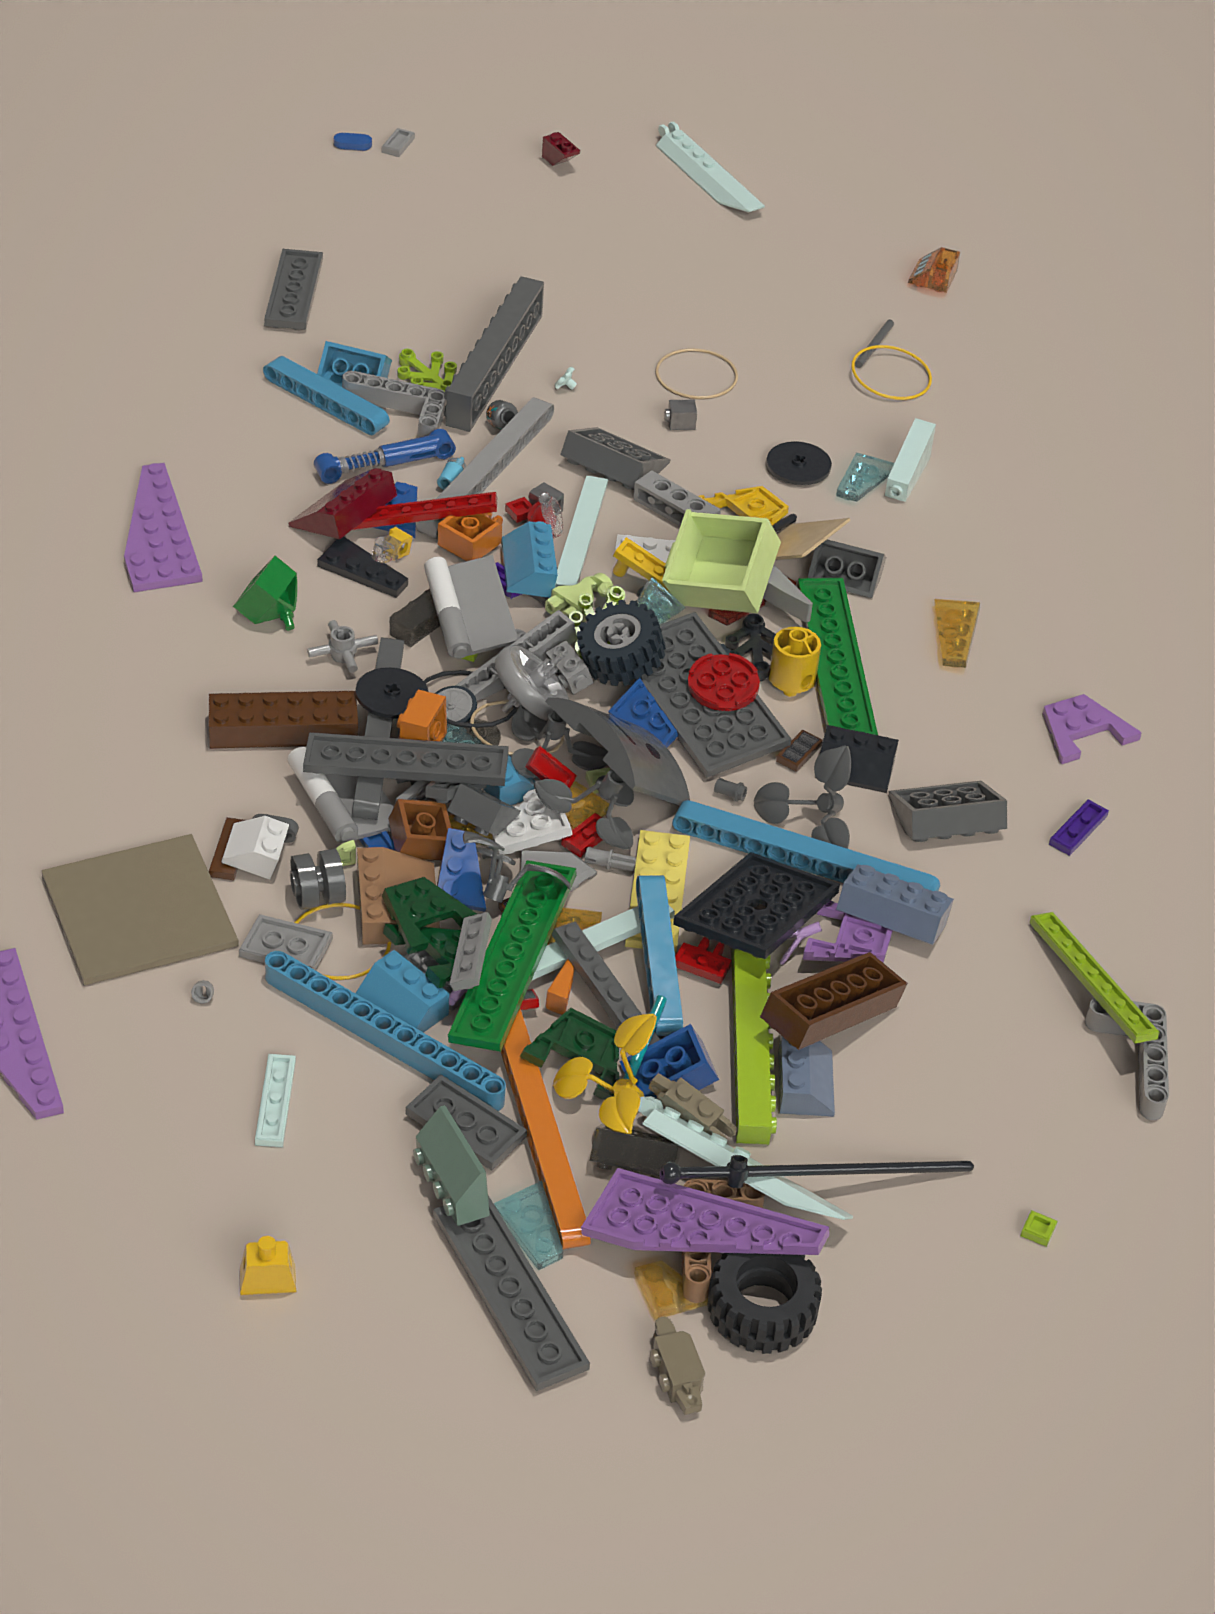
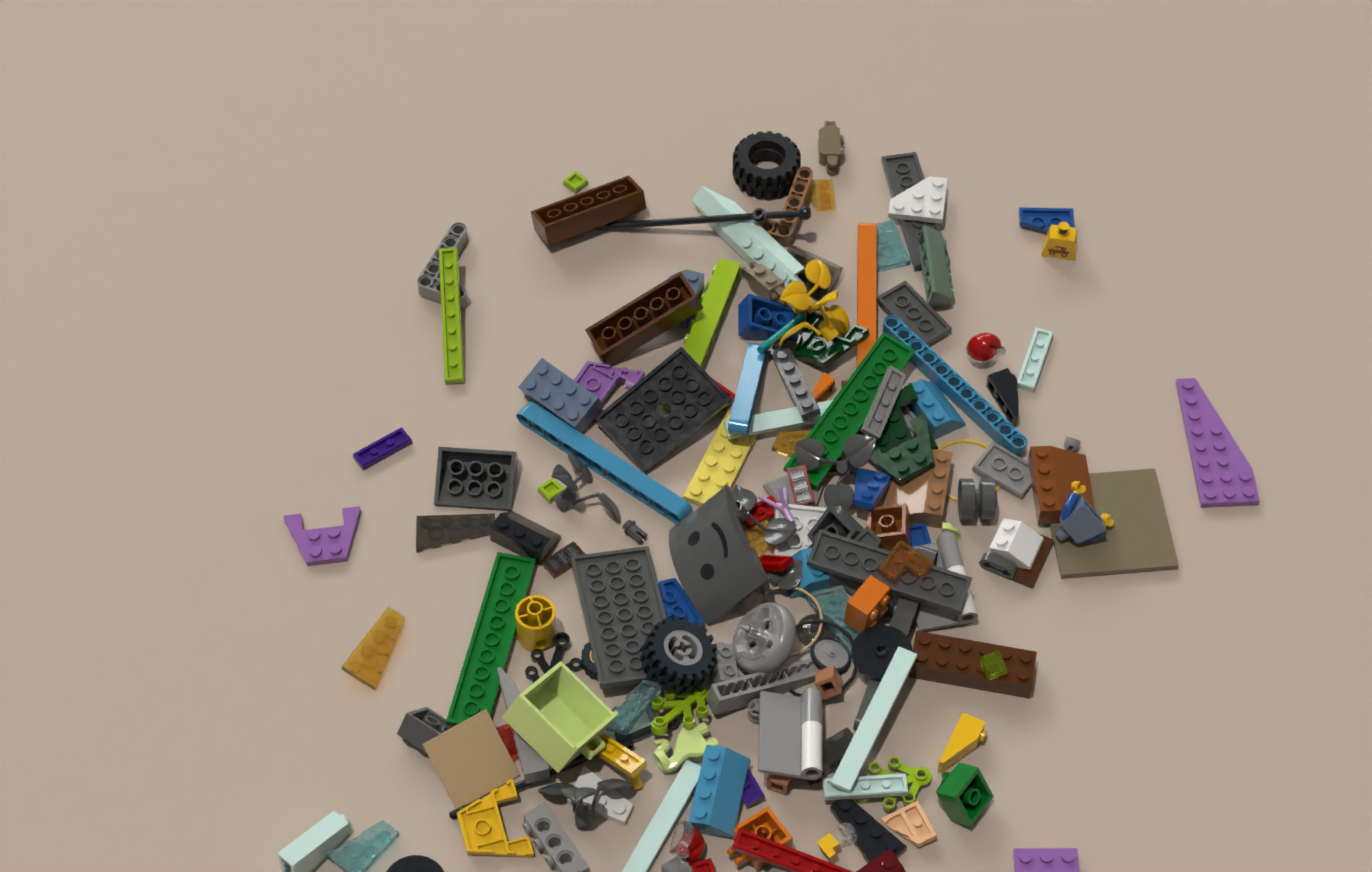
camera: 160 degrees left, 10 degrees up
(170, 863) = (1081, 519): none -> sand blue torso
(209, 920) = (1051, 479): none -> dark orange slope
(259, 693) = (993, 665): none -> clear neon green slope
(277, 651) = (963, 740): none -> yellow slope
(287, 1318) = (1041, 218): none -> blue wing
(310, 1037) = (1004, 391): none -> black slope
(318, 578) = (911, 824): none -> light nougat wing
(319, 618) = (912, 778): none -> lime plant
(342, 645) = (909, 741): light grey bar -> none
(351, 1088) = (984, 350): none -> red piece
(375, 589) = (868, 787): none -> light aqua tile
(381, 630) = (873, 719): none -> light aqua tile
(389, 758) = (904, 557): none -> clear orange plate
(444, 668) = (828, 682): none -> nougat brick
(502, 1288) = (921, 202): none -> white plate
(547, 854) = (800, 485): none -> tile
(560, 818) = (784, 508): none -> lavender plant
(590, 999) = (826, 327): none -> yellow plant
(610, 859) = (750, 486): light grey axle -> none
(665, 1217) = (830, 212): medium lavender wing -> none
(667, 486) = (582, 811): none -> dark grey plant
(723, 681) = (604, 612): red tile -> none
(854, 818) = (550, 490): none -> lime tile
(948, 757) = (444, 529): none -> clear smoke wing
(991, 1159) = (588, 210): none -> reddish brown brick

